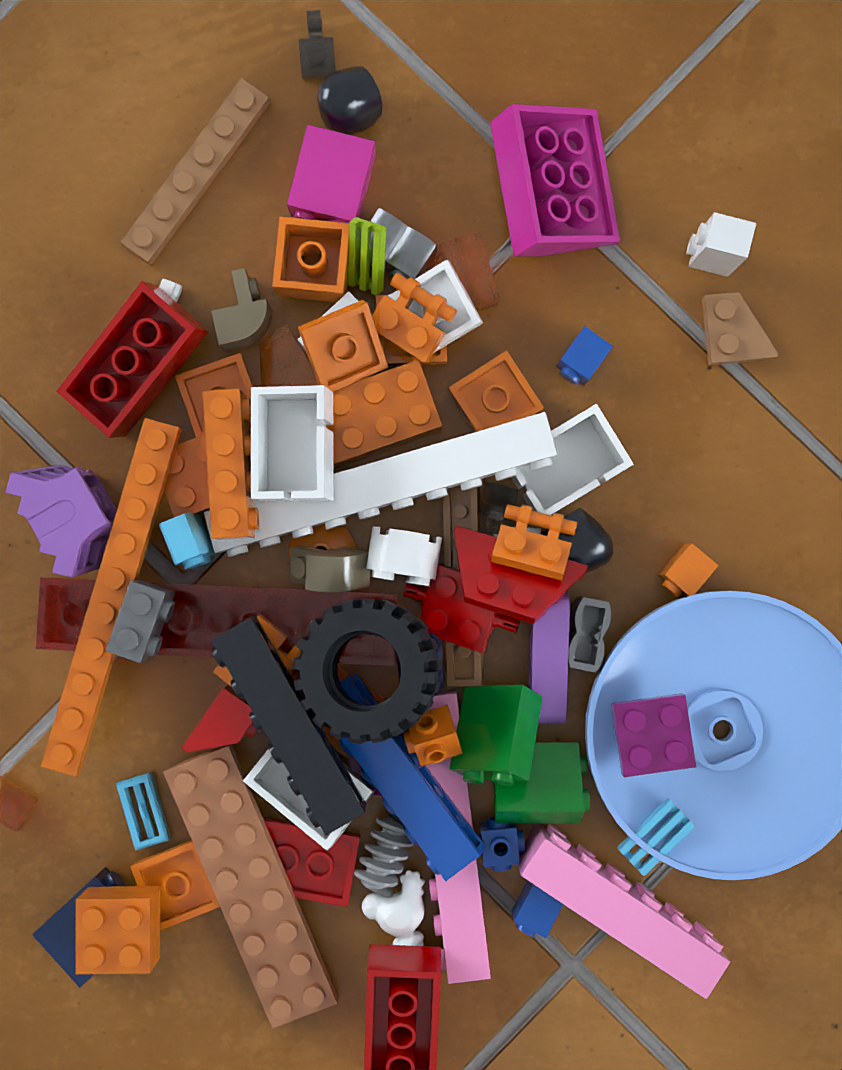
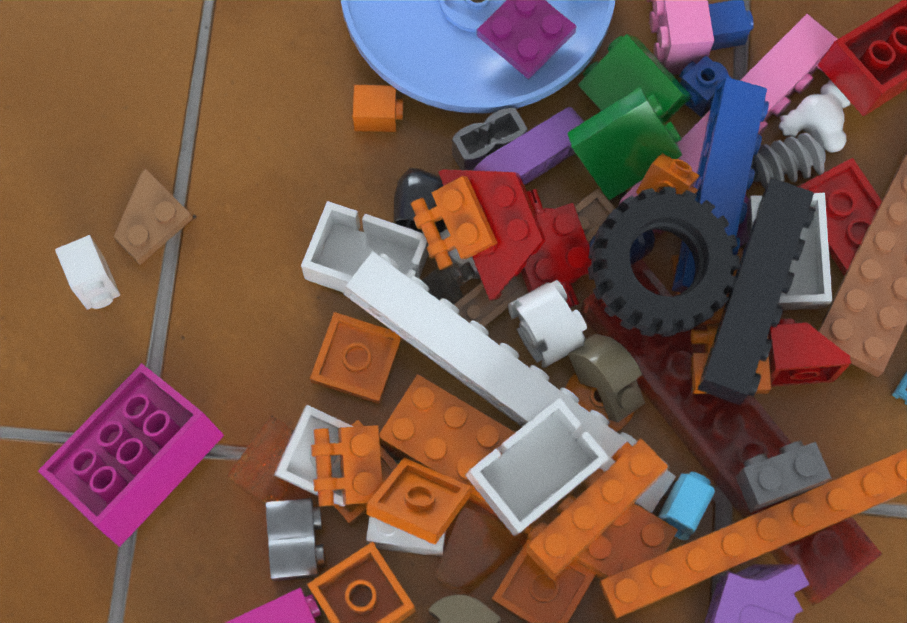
camera: 130 degrees left, 15 degrees down
(361, 254) = (342, 544): lime tile -> none
(583, 357) = (266, 314): blue brick -> none

